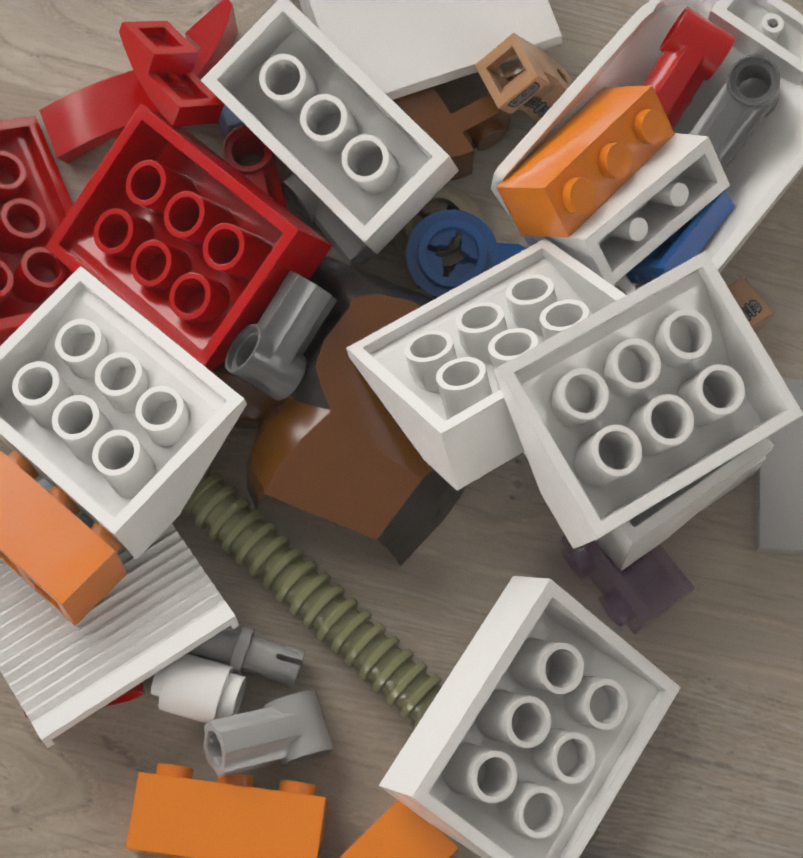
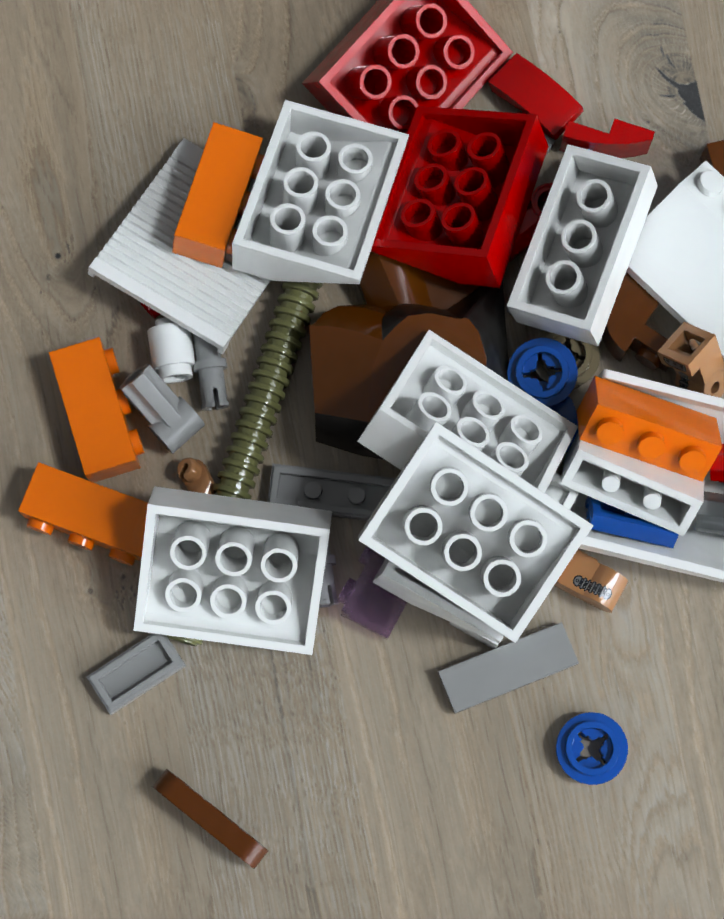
camera: 65 degrees right, 5 degrees up
(164, 68) = (574, 117): red slope -> none
(273, 349) = (407, 284): dark grey piece -> none
(379, 734) = (195, 476): none -> medium nougat arm
(478, 573) = (340, 492): none -> light grey tile

